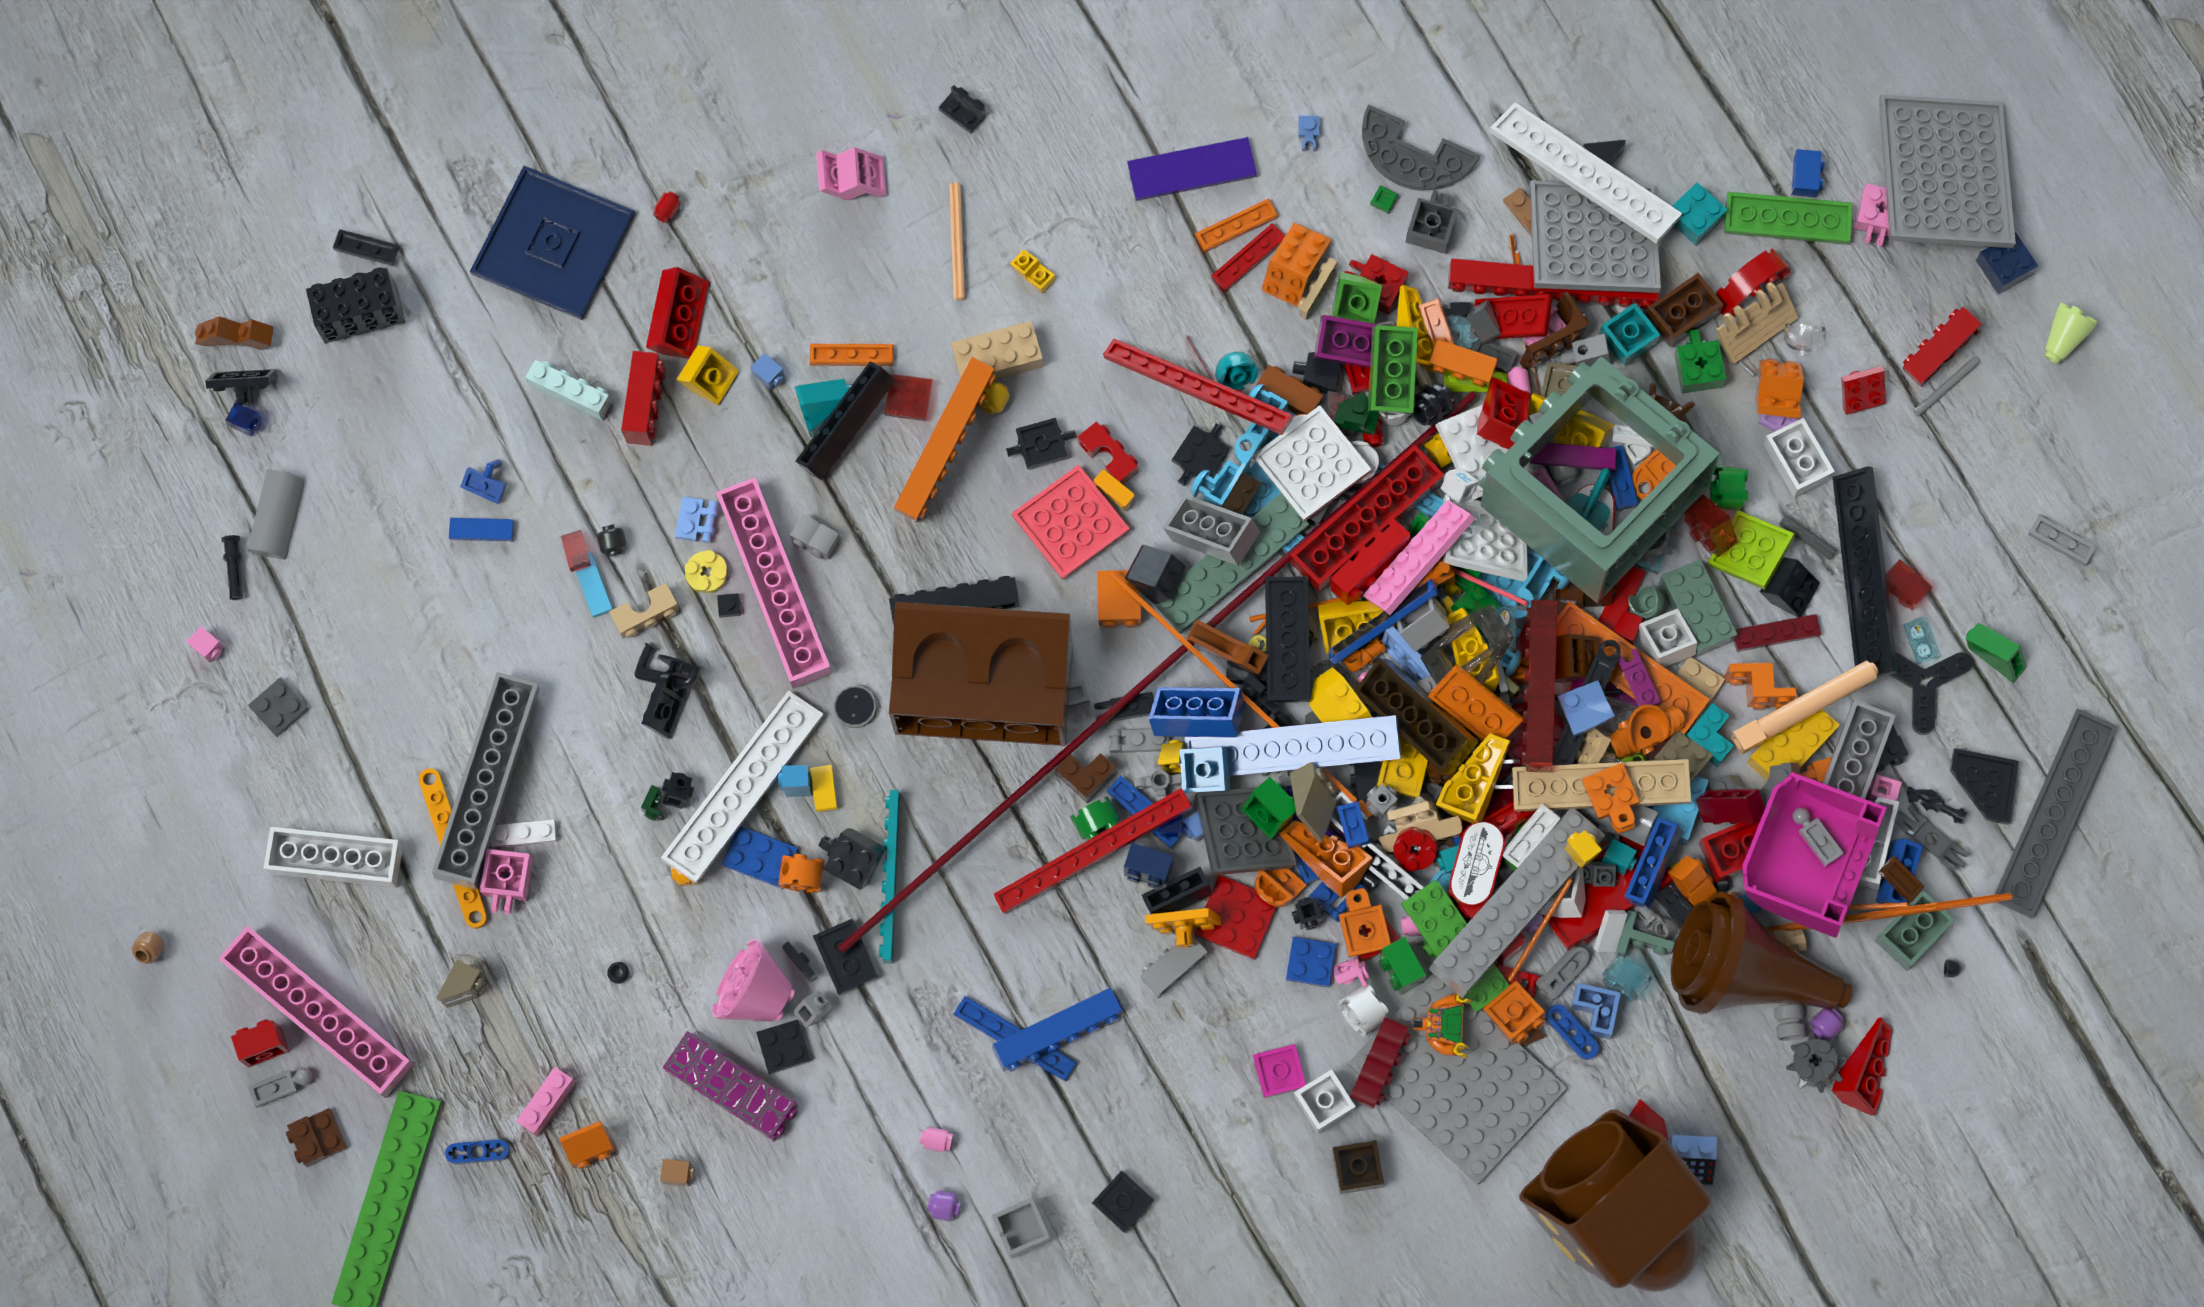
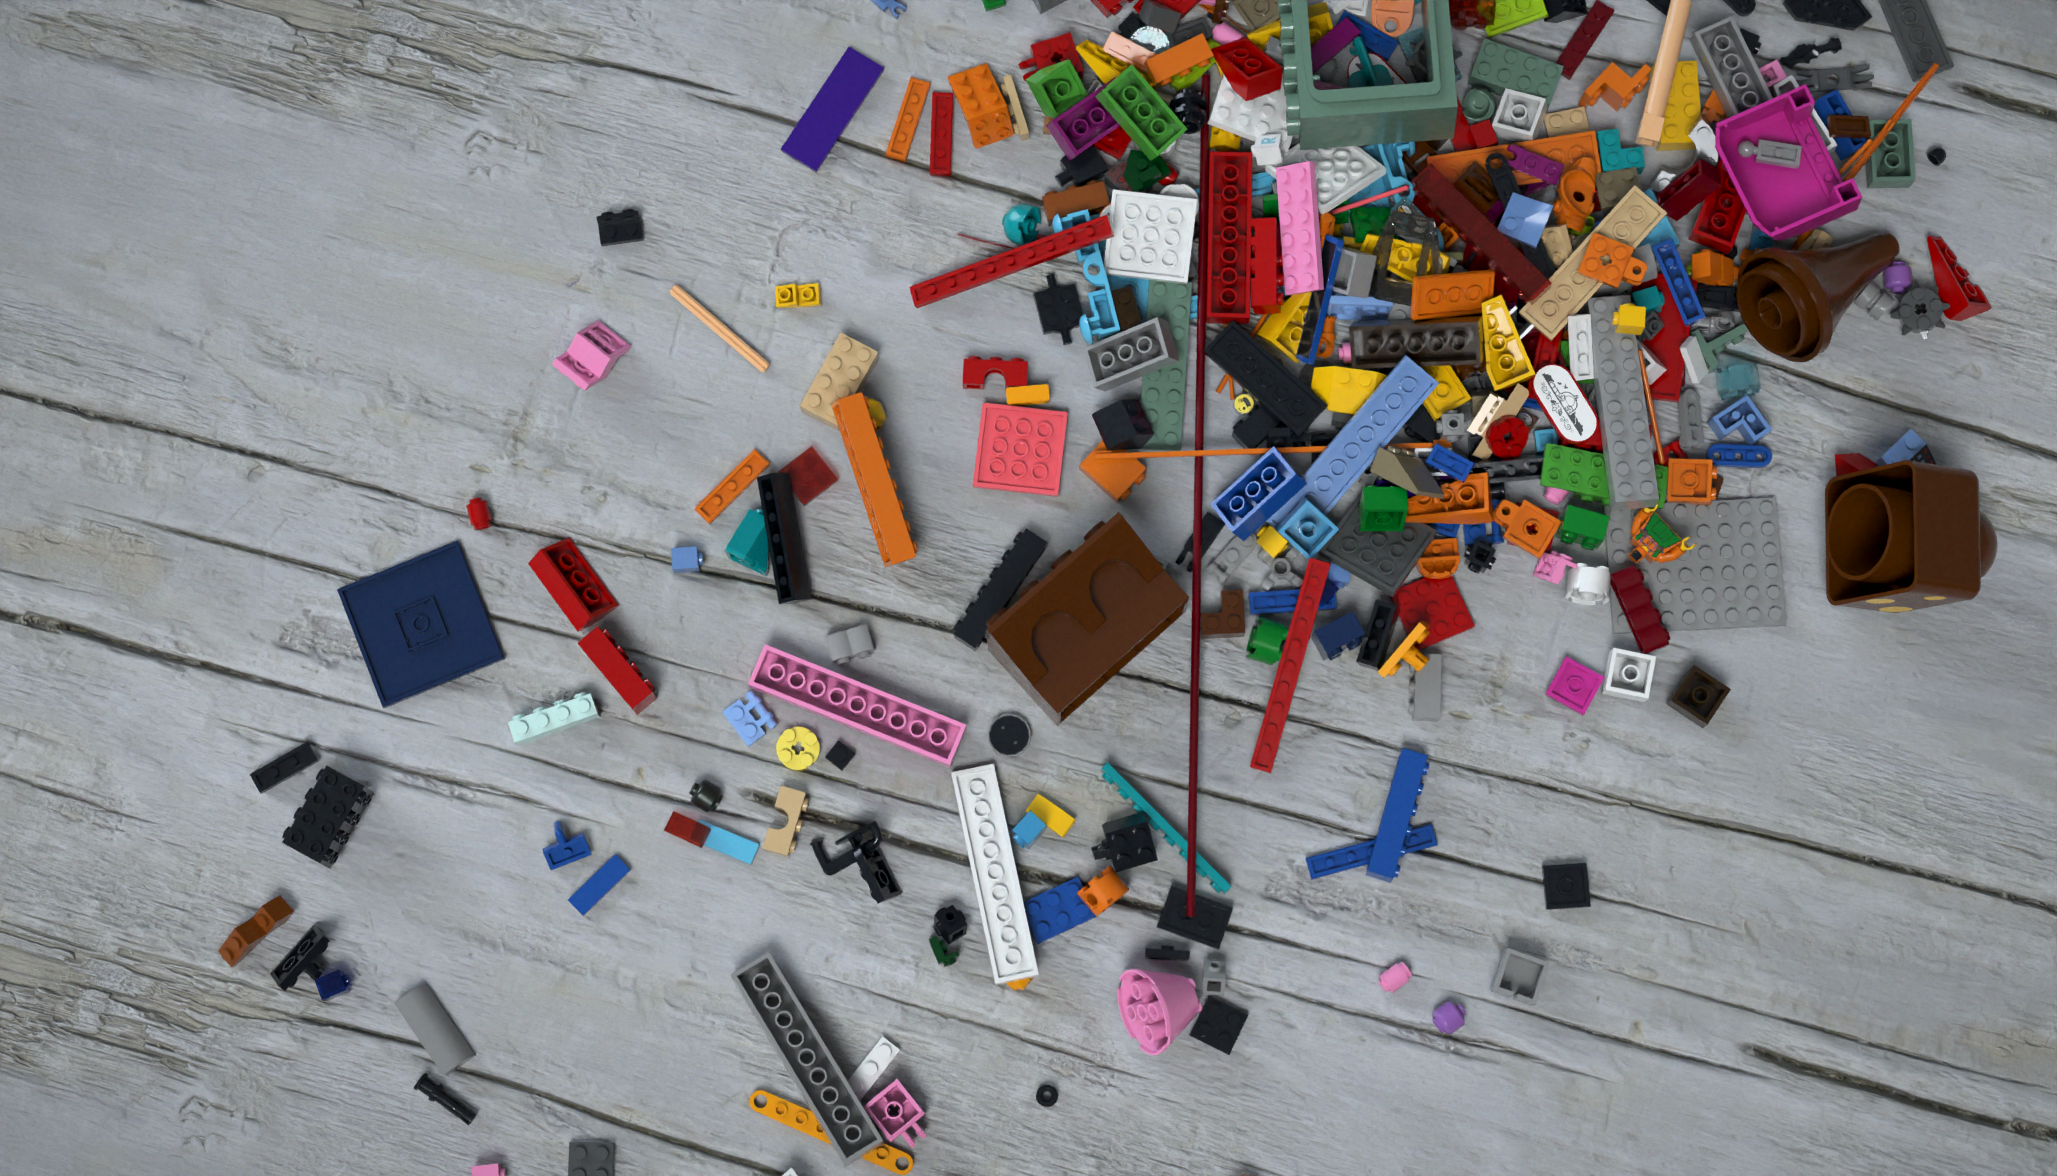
camera: 50 degrees left, 5 degrees up
(707, 374) = (644, 605): yellow slope -> none
(731, 1086) = (1214, 1091): magenta brick -> none
(1041, 443) = (939, 414): black plate -> none
(1227, 648) = (1232, 426): dark orange arch -> none
(1310, 962) = (1514, 588): blue plate -> none
(1446, 859) = (1536, 420): teal brick -> none

